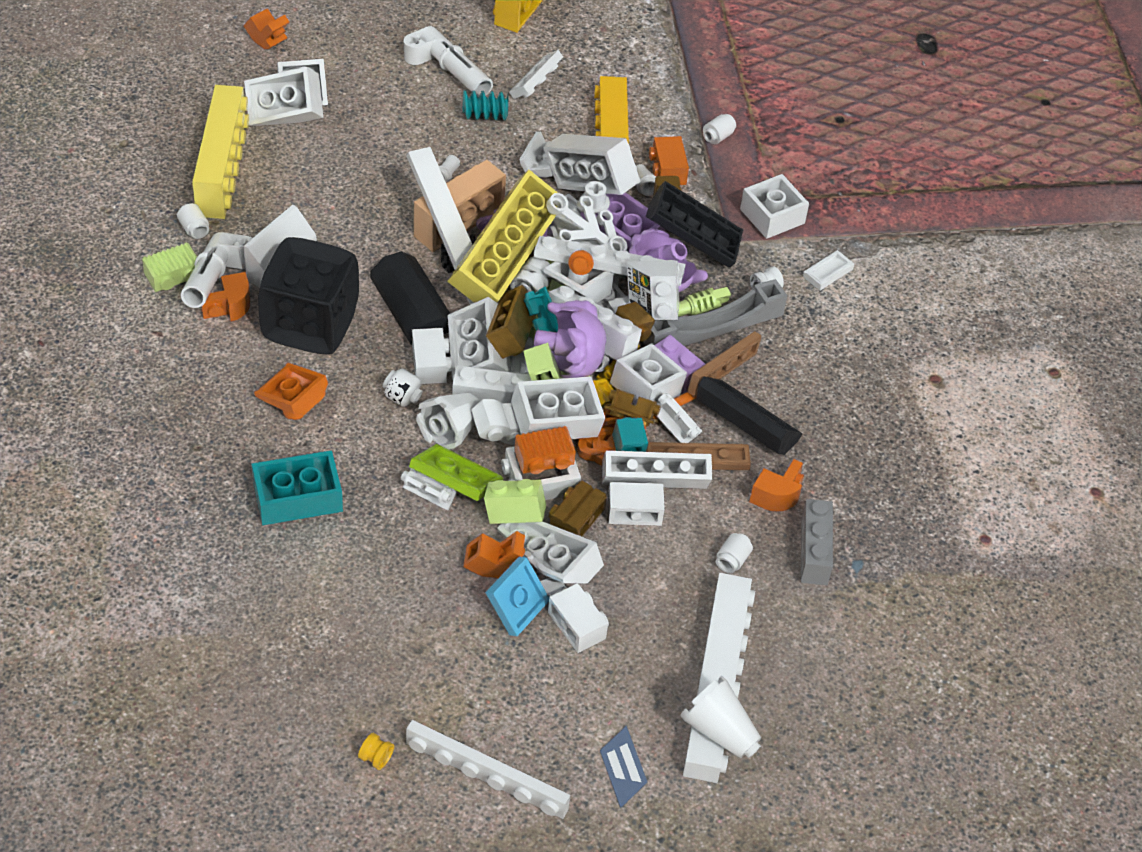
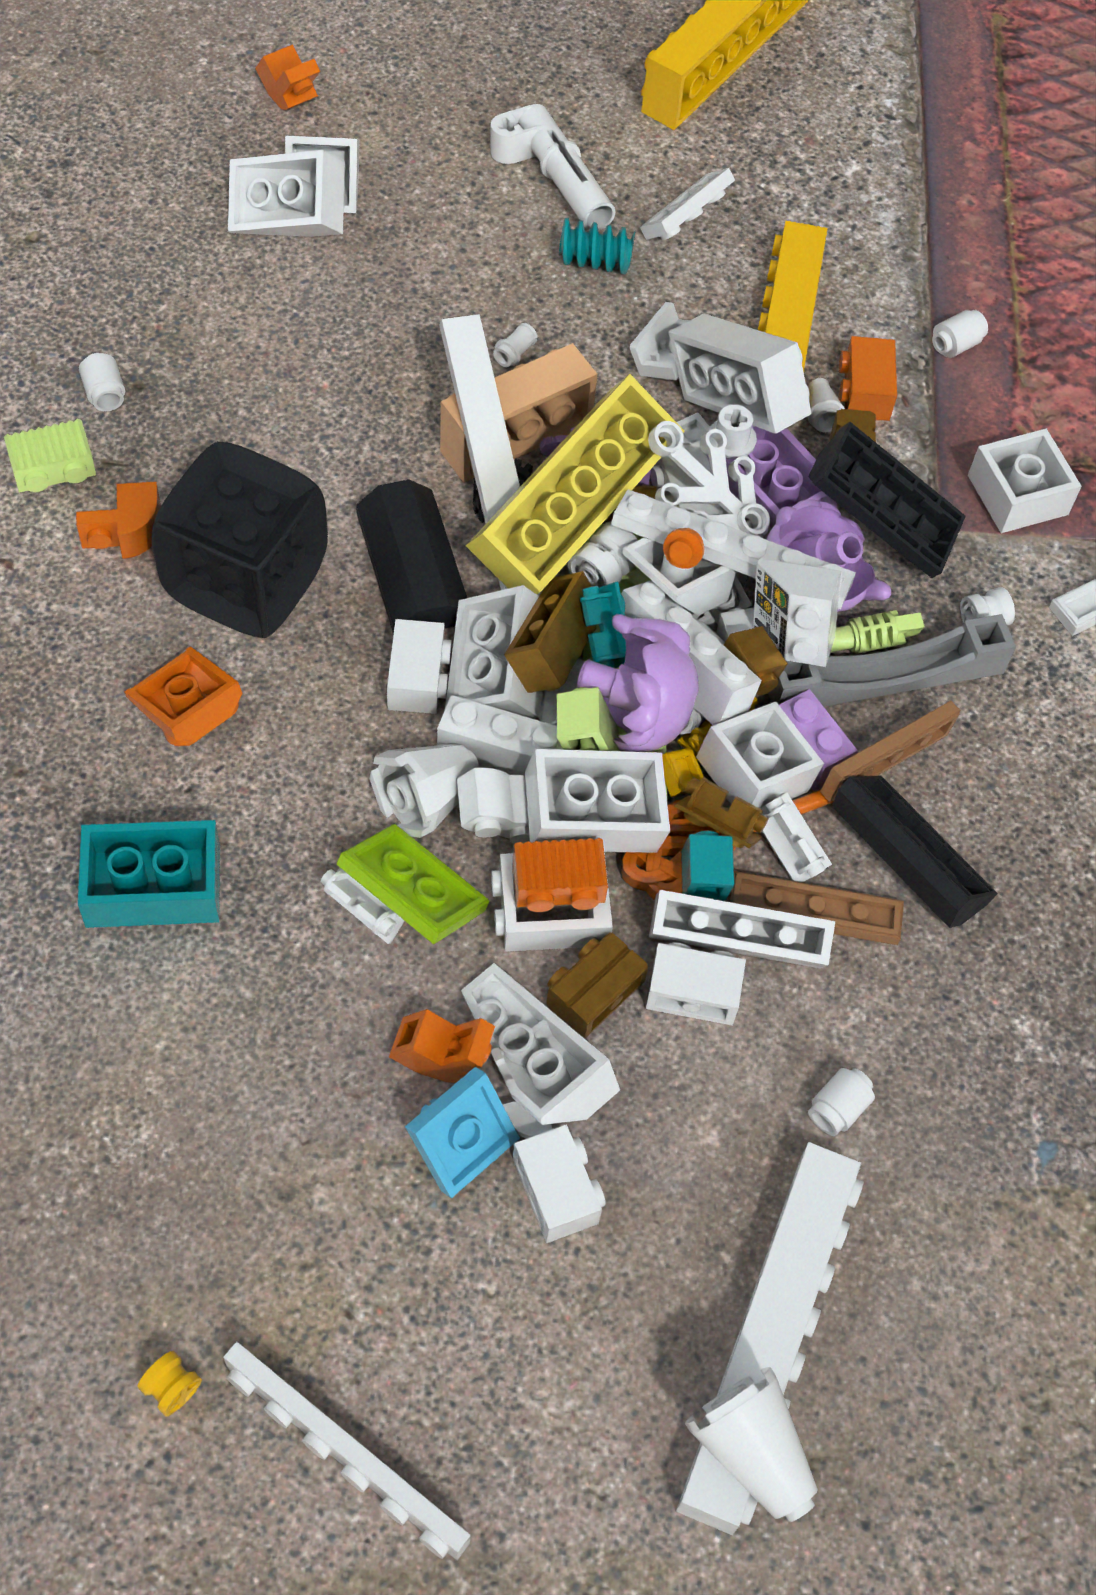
camera: 10 degrees right, 10 degrees up
(212, 265) = (132, 439): white piece -> none
(221, 151) = (166, 272): light yellow brick -> none
(263, 246) = (234, 419): white slope -> none
(402, 387) = (360, 716): white head -> none
(515, 501) = (495, 954): yellowish green brick -> none
(623, 766) = (579, 1476): sand blue sticker -> none
(777, 491) = (934, 998): orange brick -> none
(817, 542) = (985, 1104): light grey brick -> none

